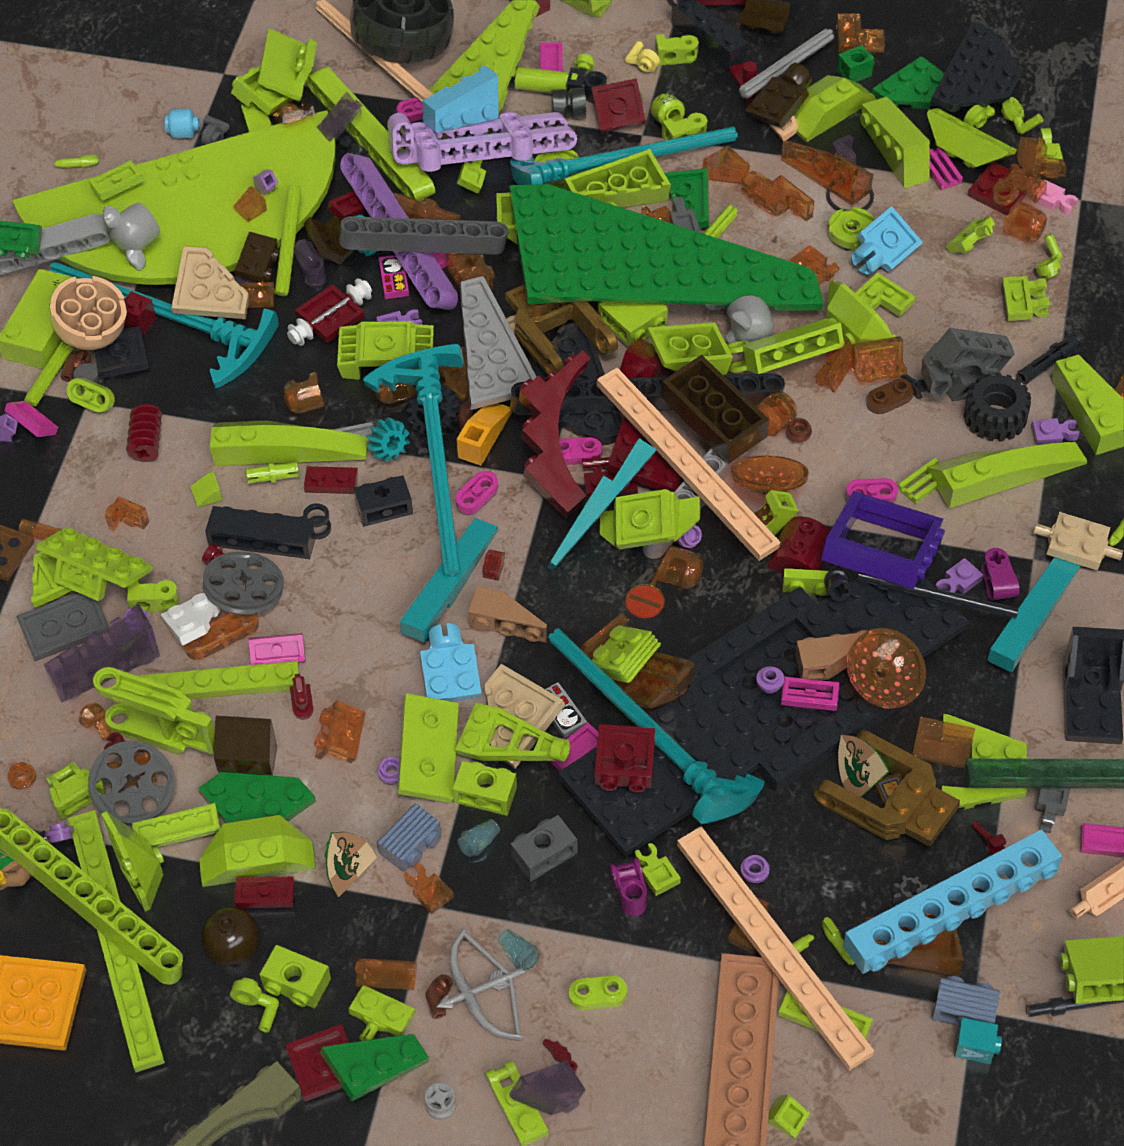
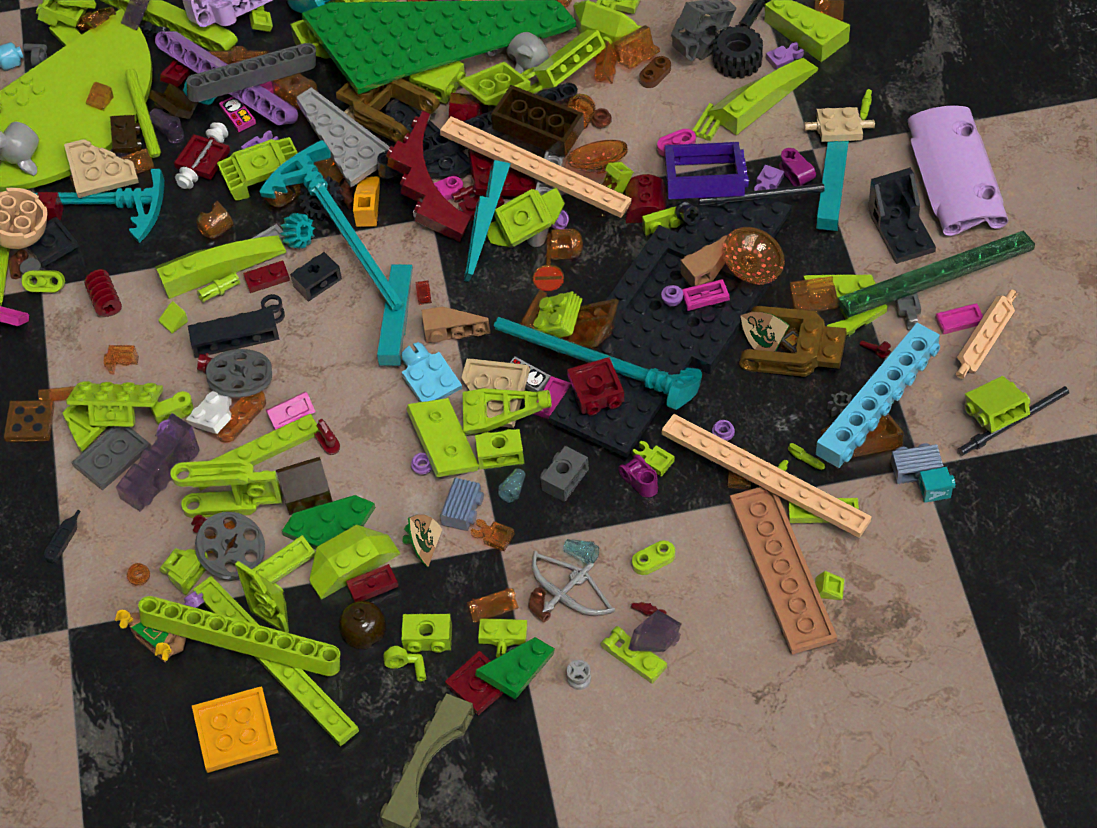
camera: 20 degrees left, 0 degrees up
(94, 715) = (173, 509): clear orange plate -> none
(265, 181) = (102, 74): medium lavender piece -> none
(339, 732) = (369, 451): clear orange bracket -> none
(475, 494) = (384, 247): dark pink plate -> none
(918, 385) = (673, 57): black hand -> none

